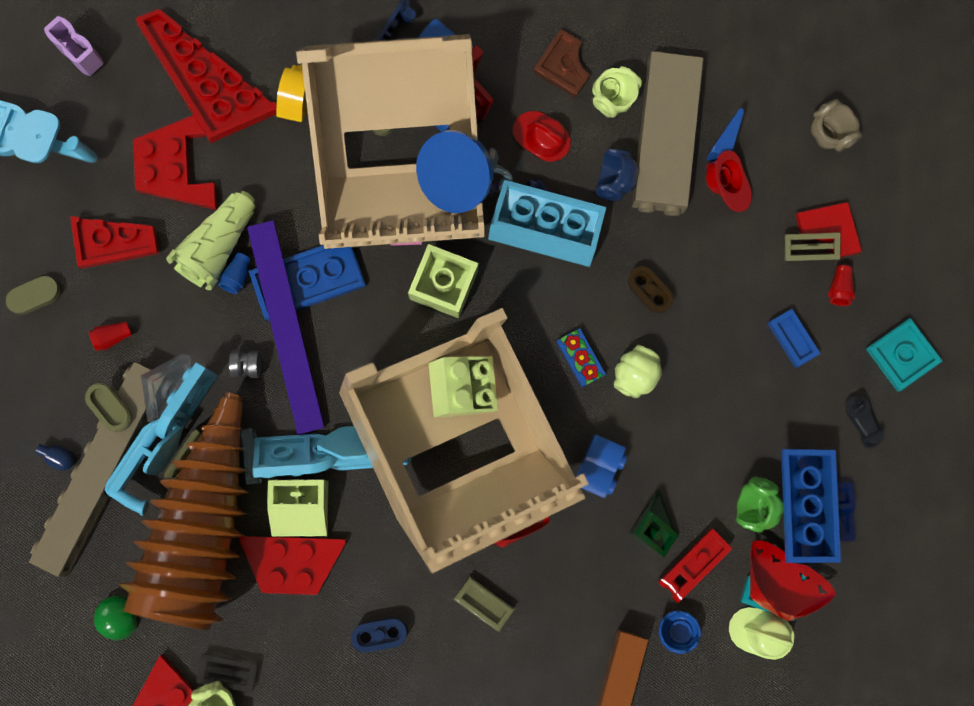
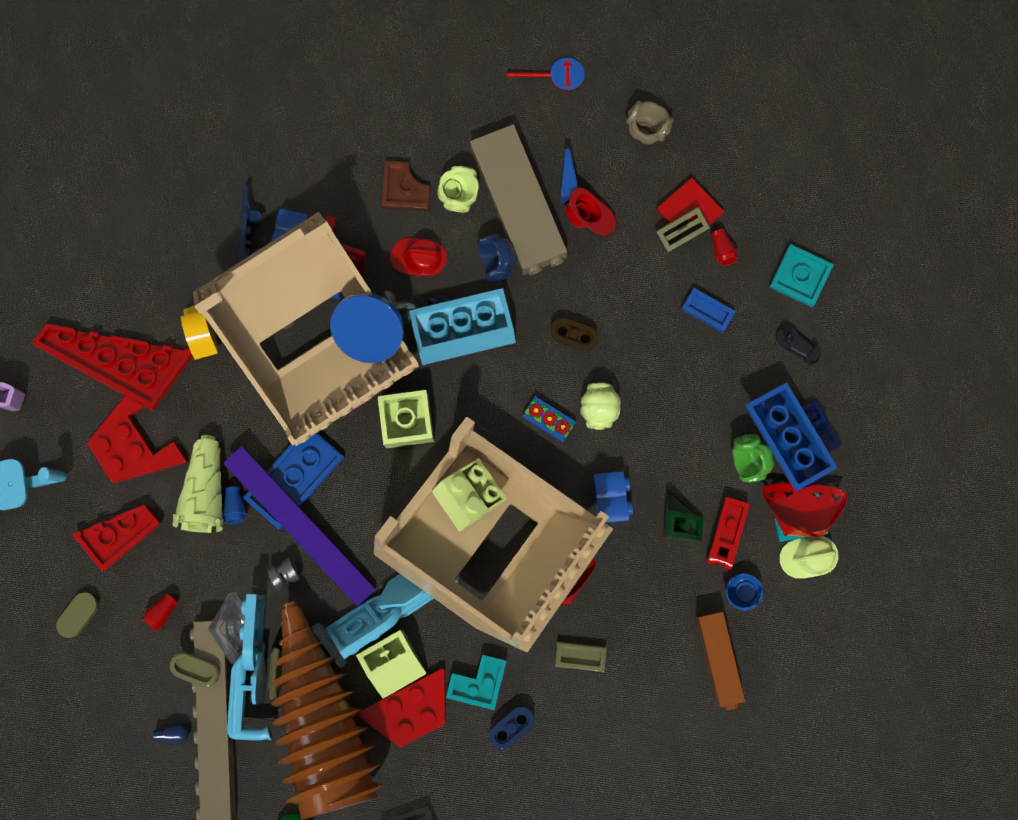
camera: 20 degrees left, 0 degrees up
(370, 582) = (482, 690): none -> teal plate
(777, 39) = (565, 74): none -> blue piece

